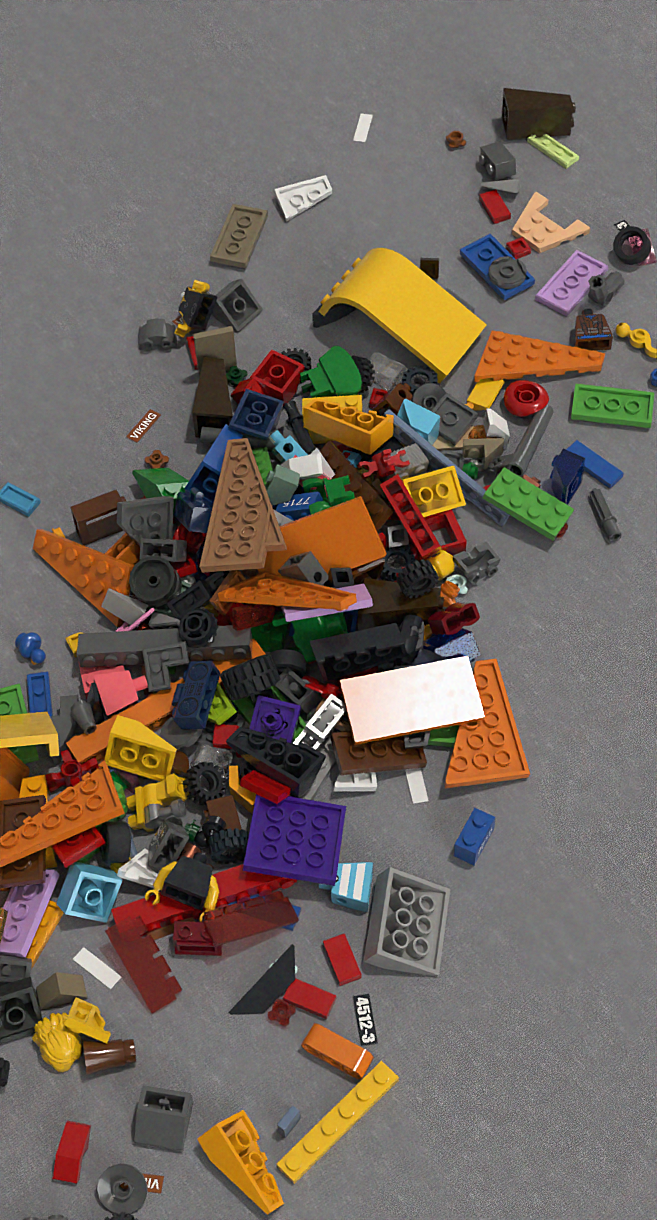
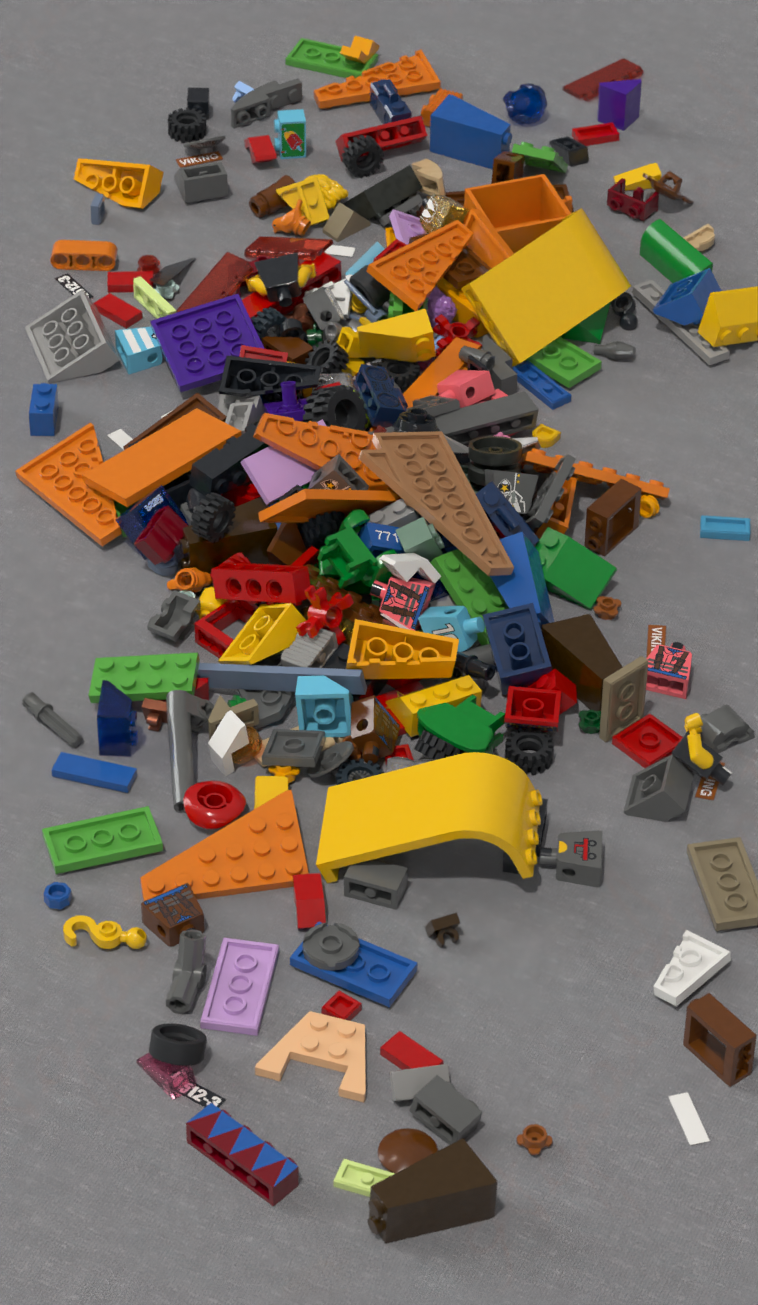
camera: 150 degrees right, 15 degrees down
(29, 647) = (588, 411): blue animal -> none
(33, 1141) = (291, 134): none -> brick
(113, 1008) = (292, 221): none -> orange animal
(158, 389) = (669, 670): none -> coral torso
(307, 943) = (151, 299): none -> yellowish green tile
(315, 280) = (576, 857): none -> dark grey torso
(322, 138) = (729, 1062): none -> reddish brown window
(337, 1122) = (57, 226): yellow plate -> none
(500, 314) = (308, 900): none -> red slope
(529, 157) = (404, 1148): none -> reddish brown dish
(623, 181) = (242, 1154): none -> dark red brick

